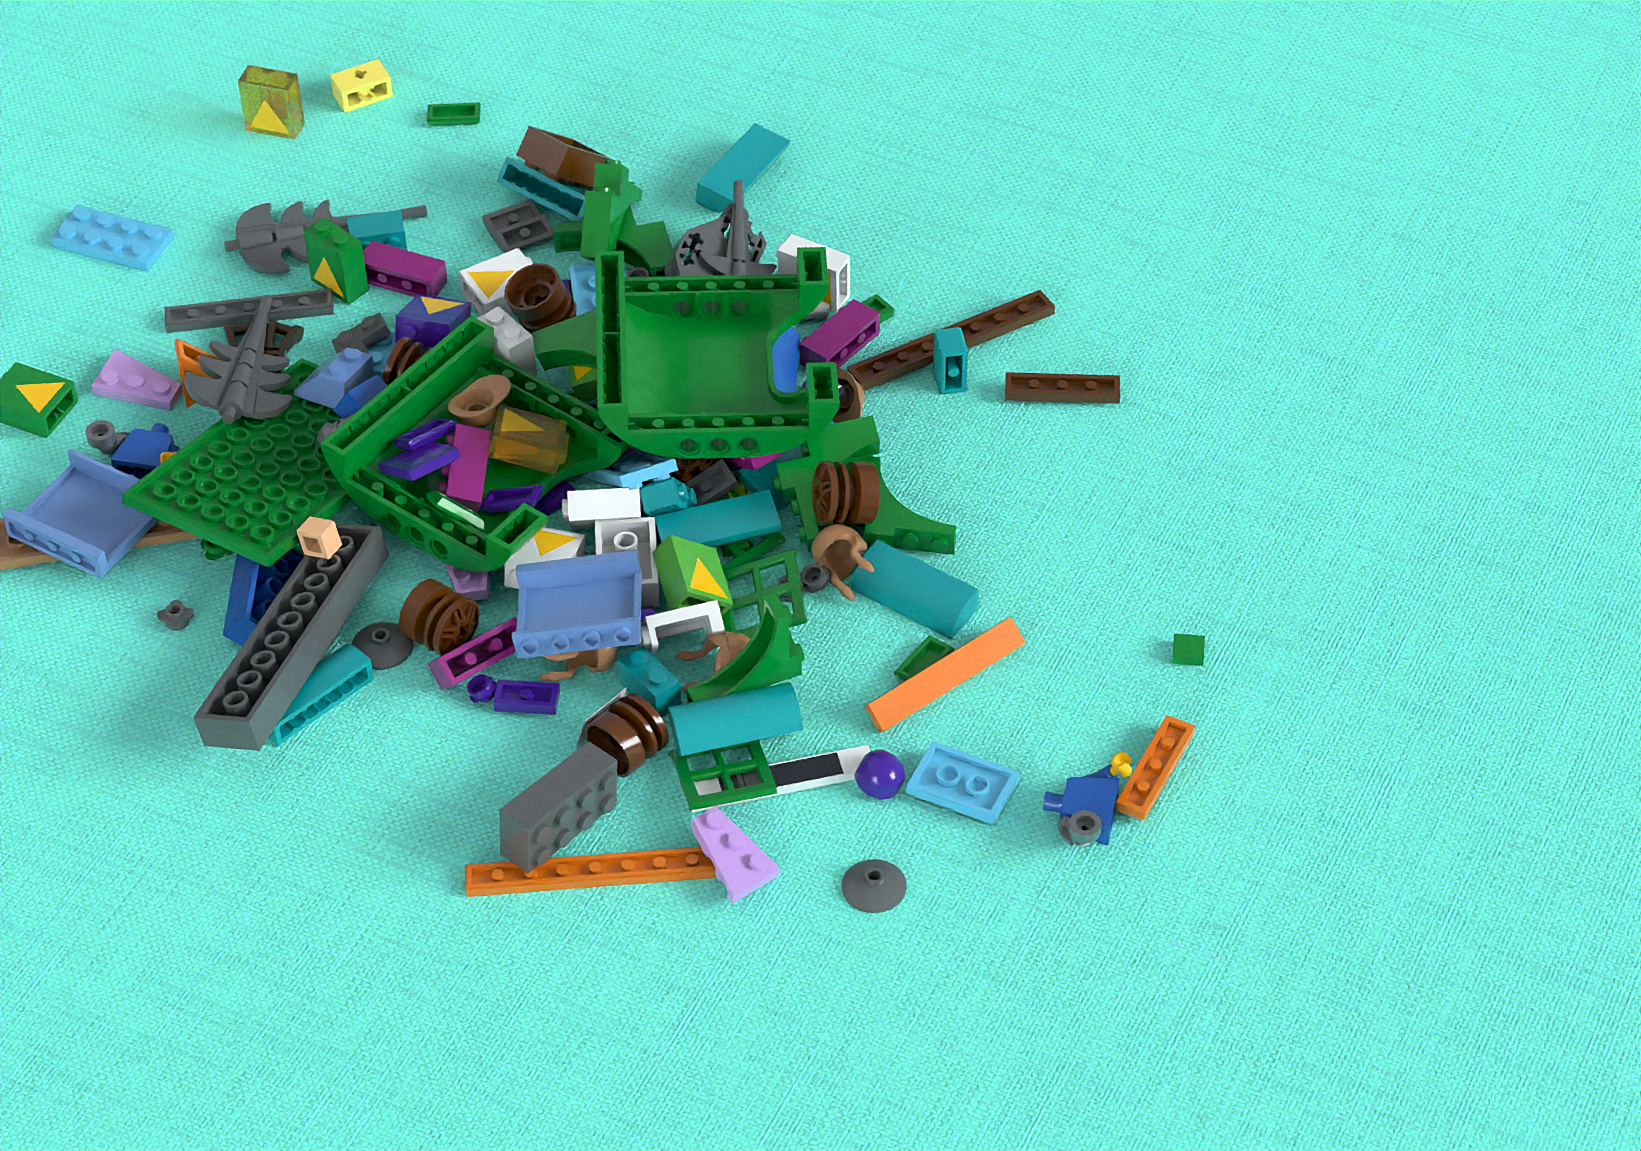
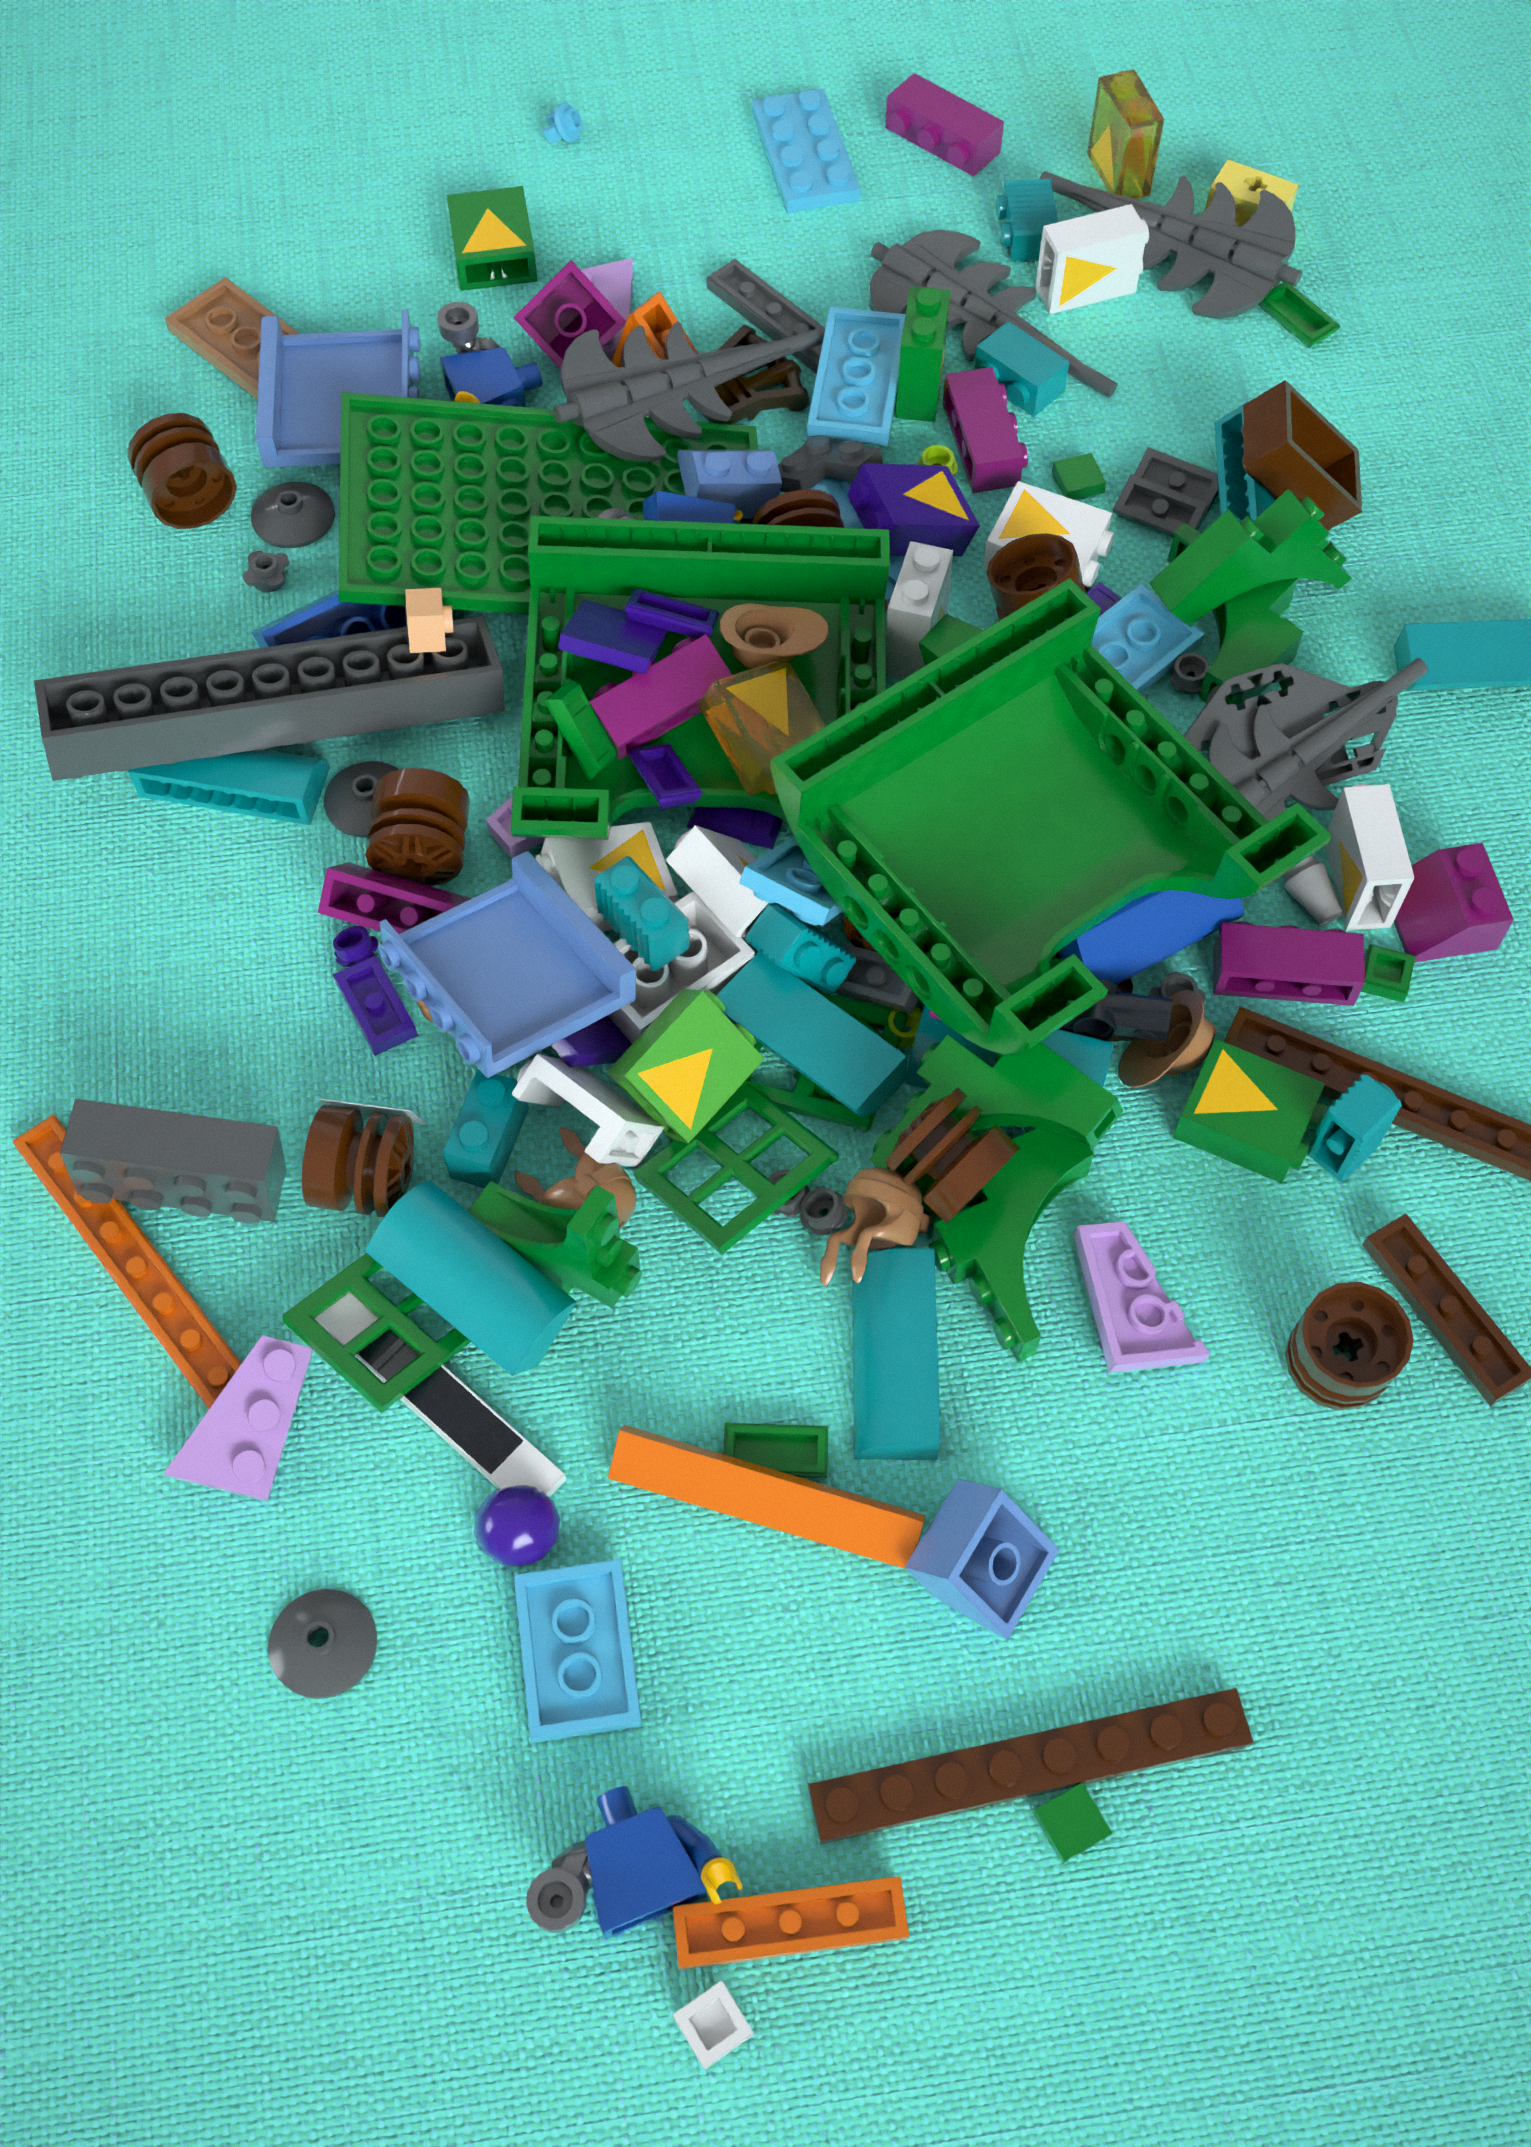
camera: 55 degrees right, 15 degrees up
(72, 610) = (181, 471): none -> reddish brown wheel
(140, 589) = (292, 514): none -> dark grey dish
(143, 391) = (567, 310): none -> magenta slope
(165, 170) = (944, 124): none -> magenta brick
(276, 174) = (1025, 210): none -> teal brick
(315, 296) = (857, 376): none -> medium azure plate
(339, 163) = (1091, 258): none -> white brick
(400, 107) = (1242, 258): none -> dark grey animal
(401, 299) = (939, 456): none -> lime plate
(469, 253) = (1079, 477): none -> green tile
(596, 536) = (641, 913): none -> teal brick
(871, 262) = (1453, 905): none -> magenta slope
(905, 396) = (1251, 1111): none -> green brick
(967, 496) = (1129, 1306): none -> lavender wing
(1040, 610) = (983, 1556): none -> medium blue slope
(1054, 424) = (1356, 1321): none -> reddish brown wheel
(1150, 652) = (1028, 1765): none -> reddish brown plate
(1179, 817) = (713, 2025): none -> white plate

